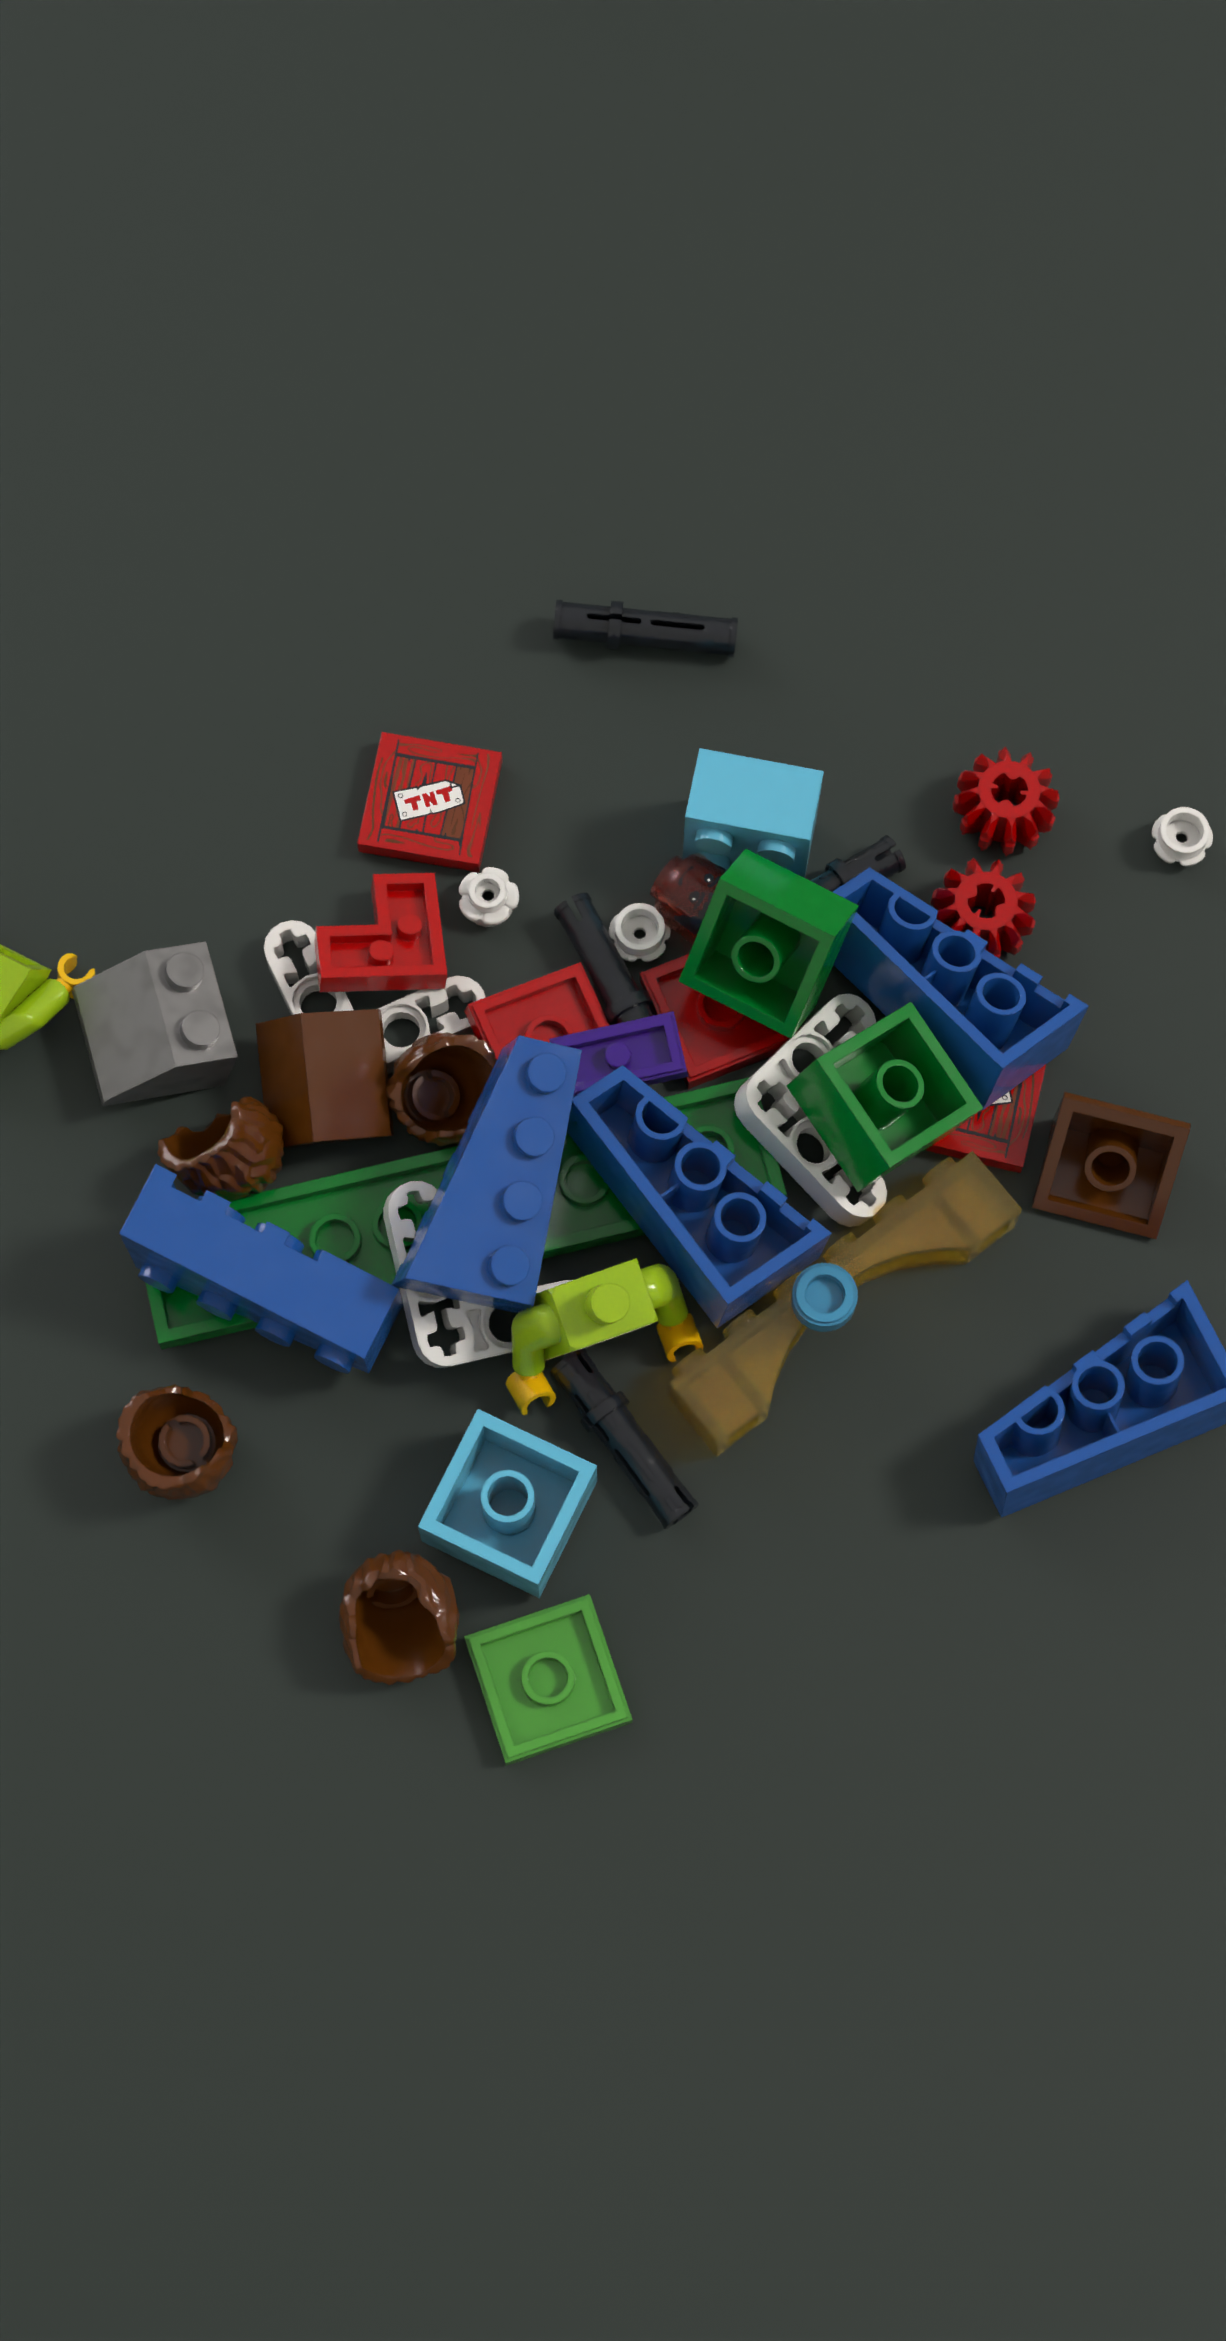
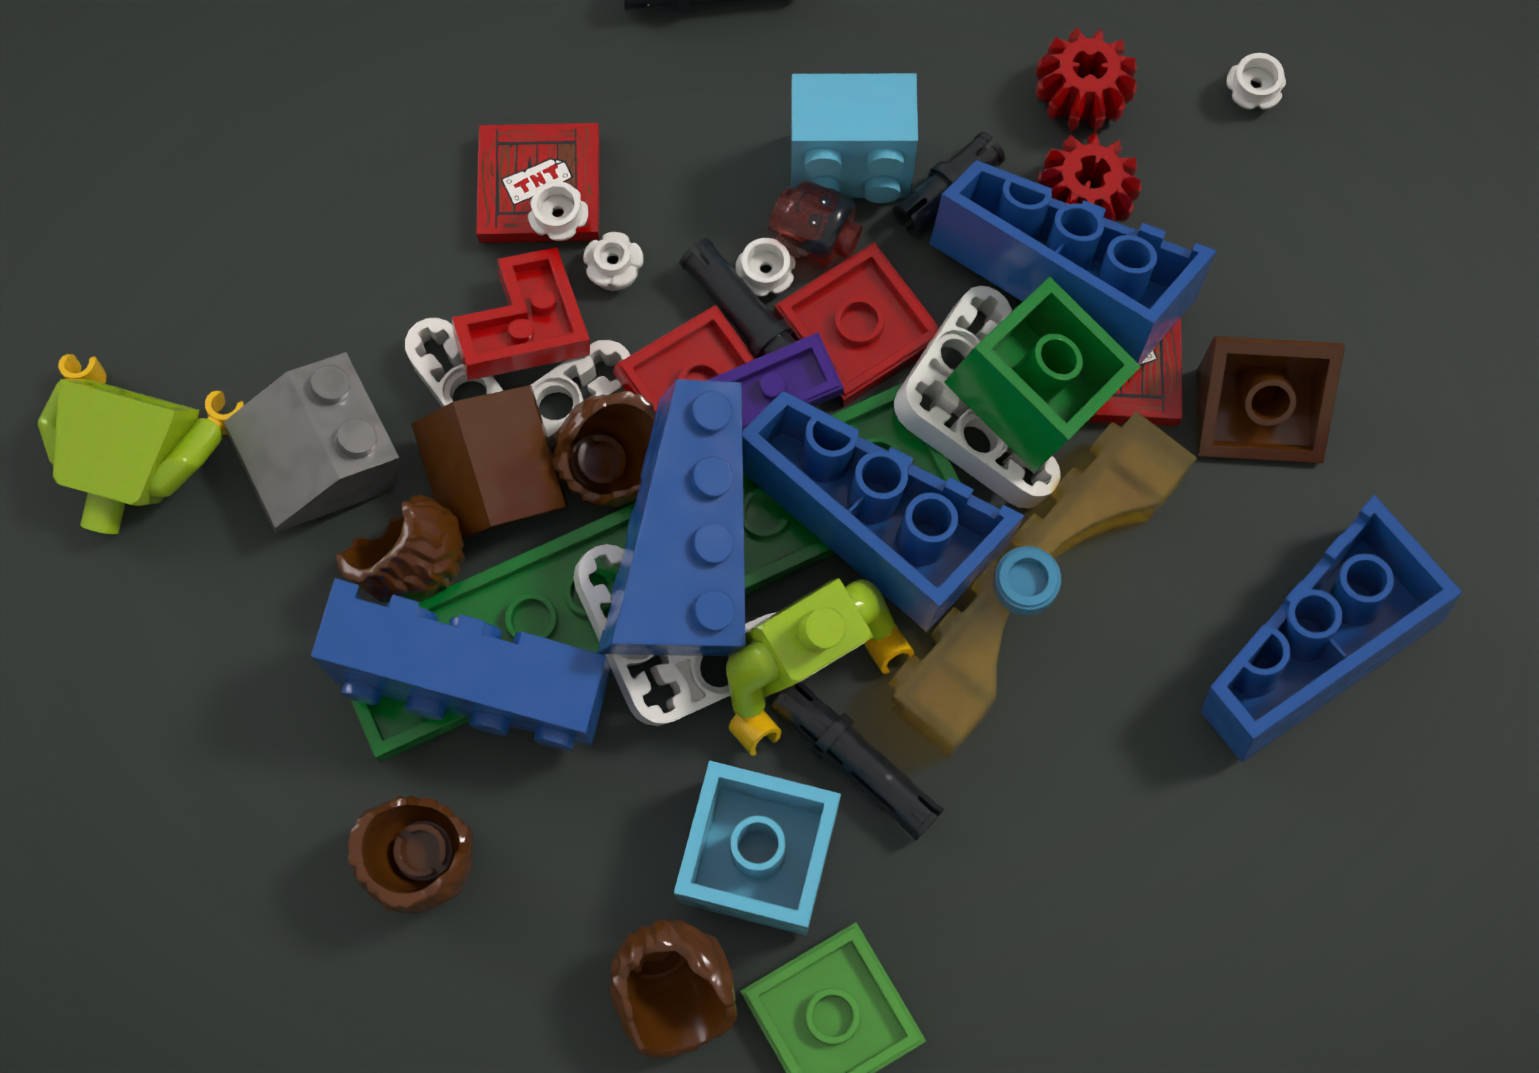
camera: 10 degrees left, 0 degrees up
(437, 822) = (557, 196): none -> white plate
(768, 943) = (896, 247): green brick -> none

